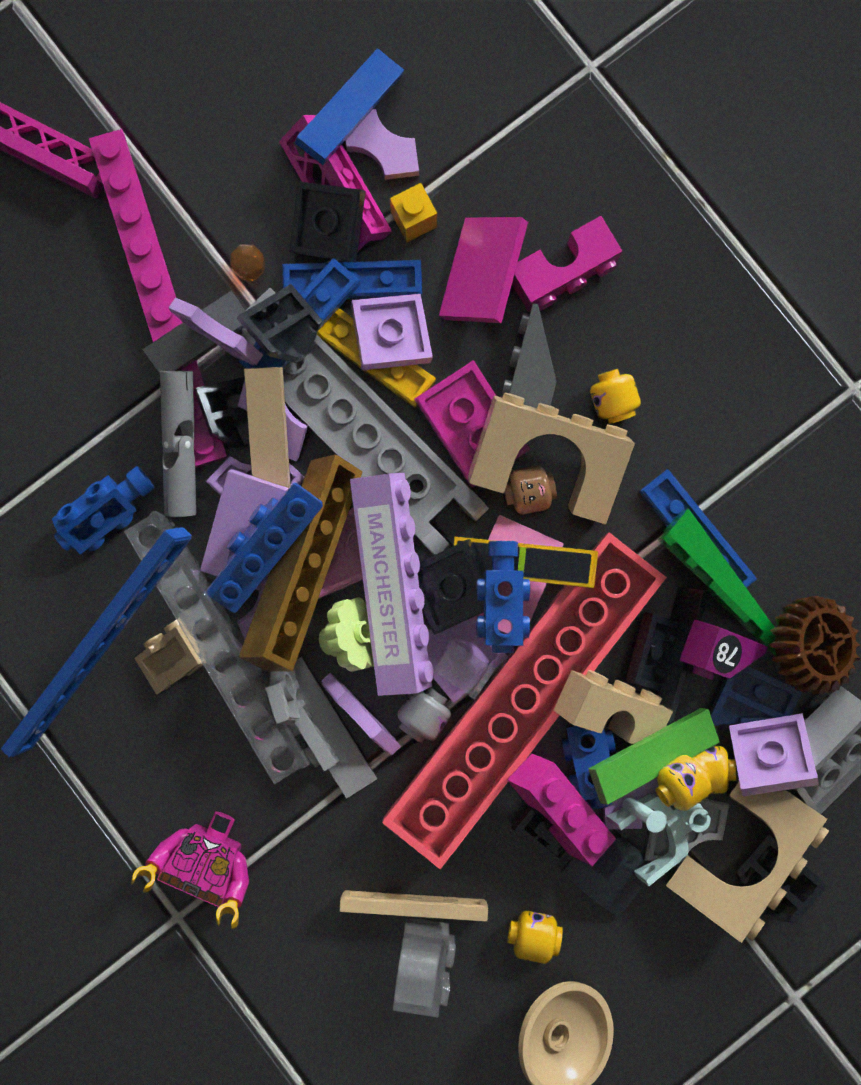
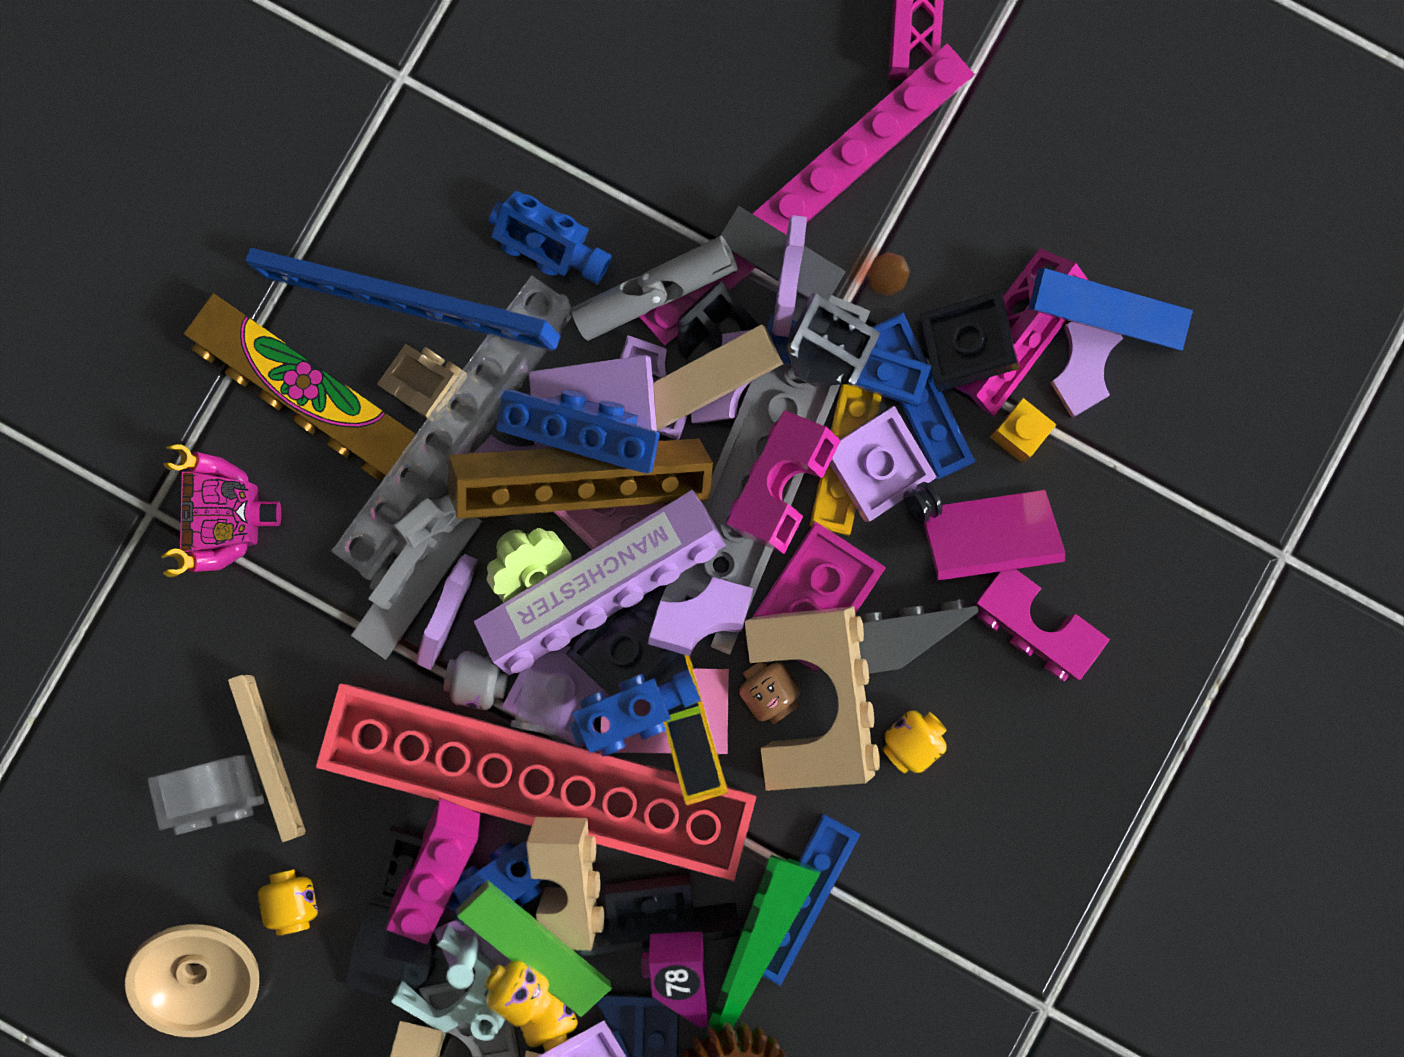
camera: 65 degrees right, 0 degrees up
(130, 755) = (299, 384): none -> brick
(351, 388) = (792, 448): none -> dark pink arch
(436, 310) = (922, 503): none -> black bush
(451, 529) = (683, 624): none -> lavender tile

